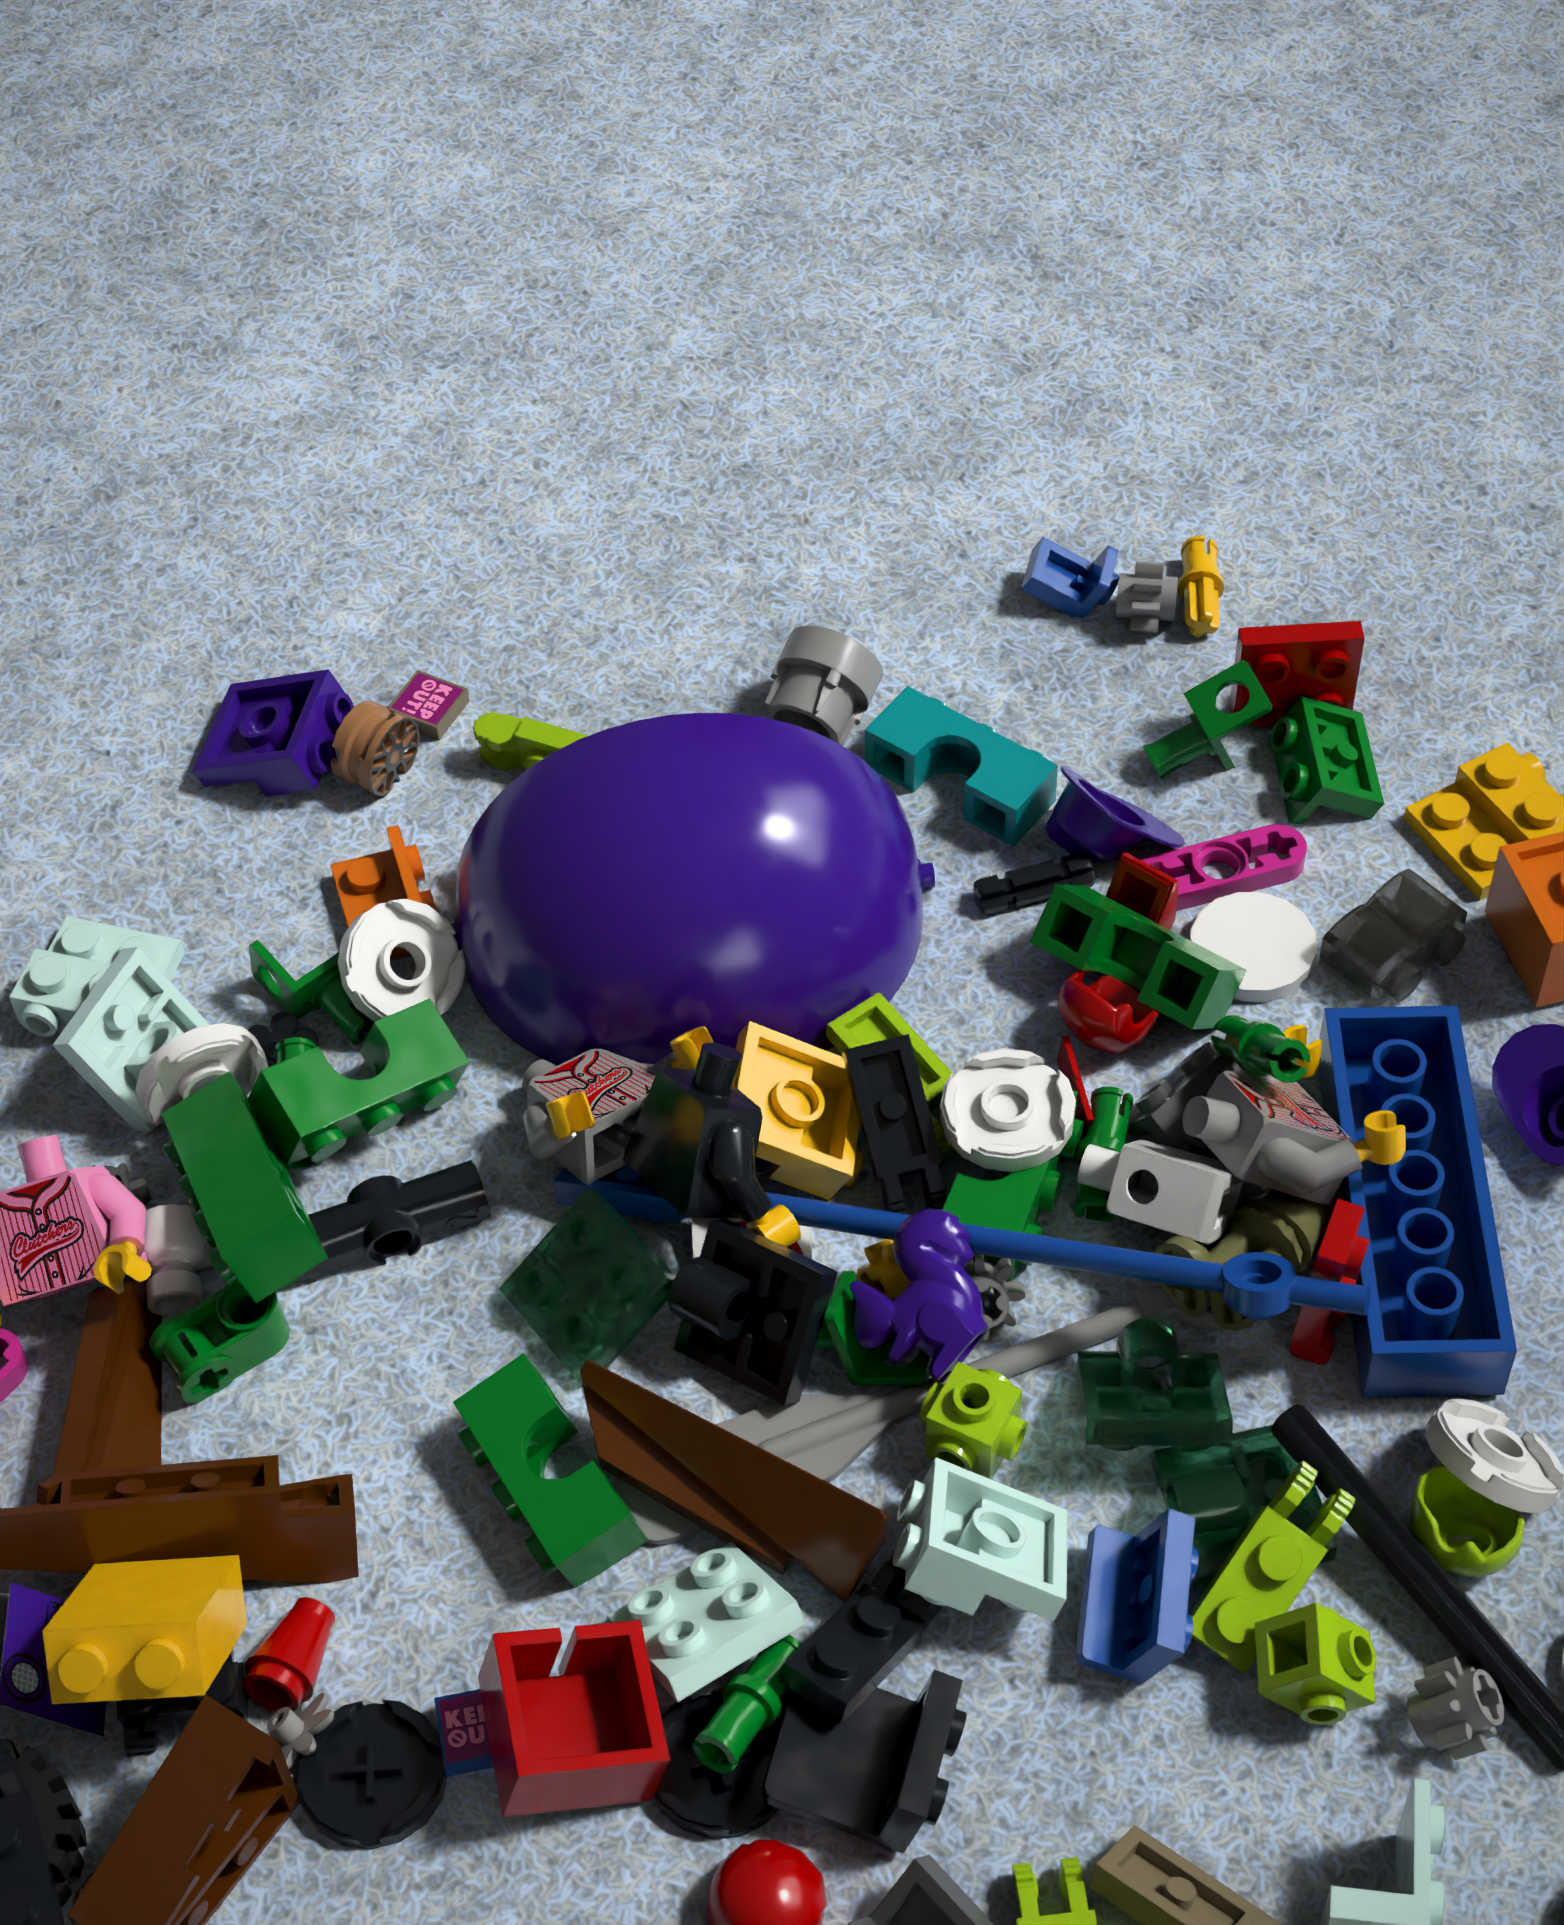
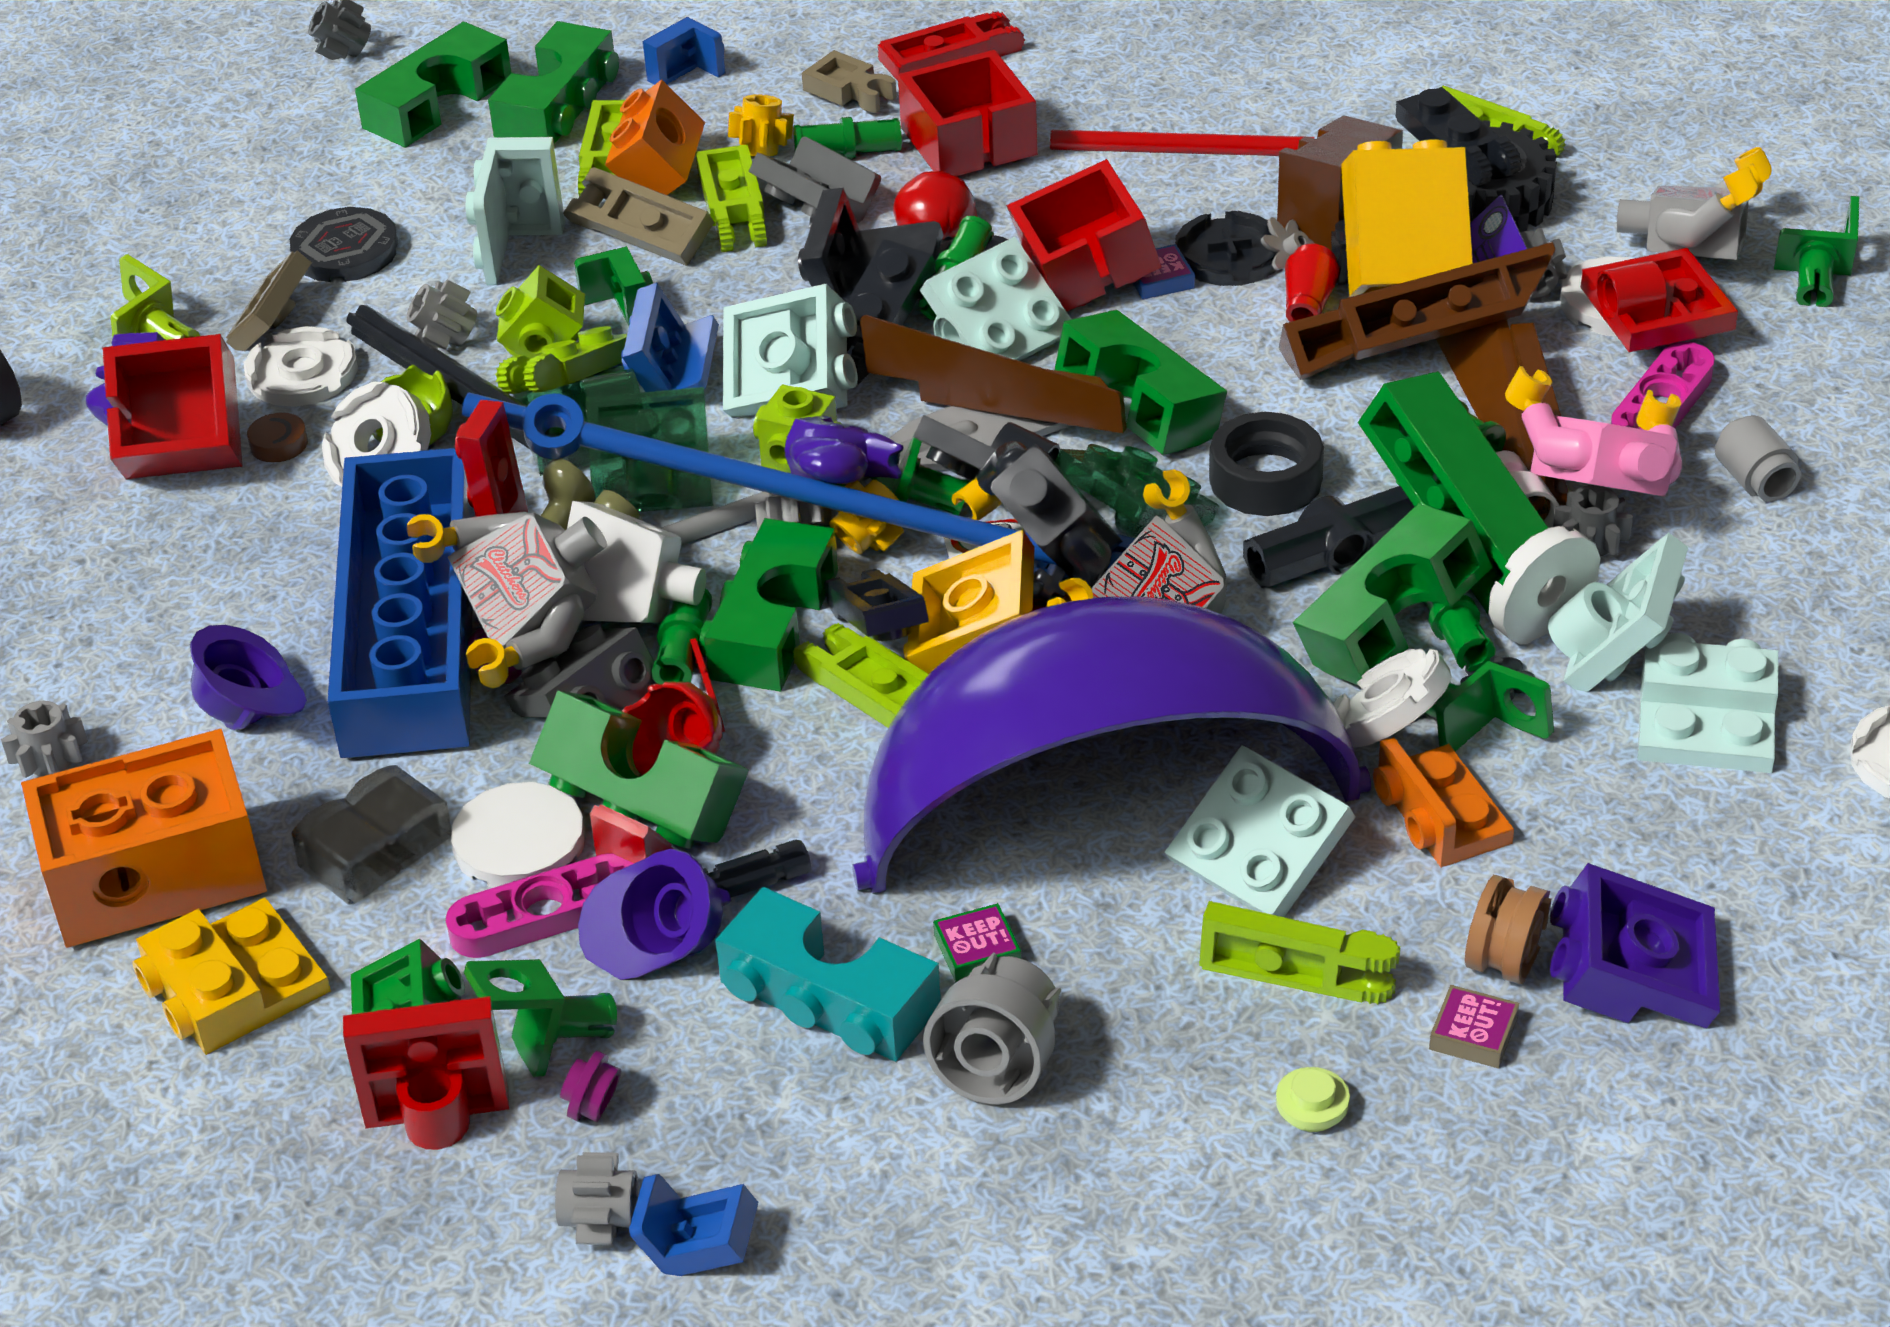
camera: 175 degrees right, 10 degrees down
(440, 1381) = (1263, 491): none -> black tyre
(576, 652) = (1312, 1099): none -> yellowish green plate
(1007, 1110) = (769, 605): white tile -> none
(1159, 691) = (590, 1087): none -> magenta plate
(1198, 1744) = (611, 276): none -> green bracket
(1200, 585) = (526, 1242): yellow axle -> none
(1260, 1048) = (527, 622): green pin -> none

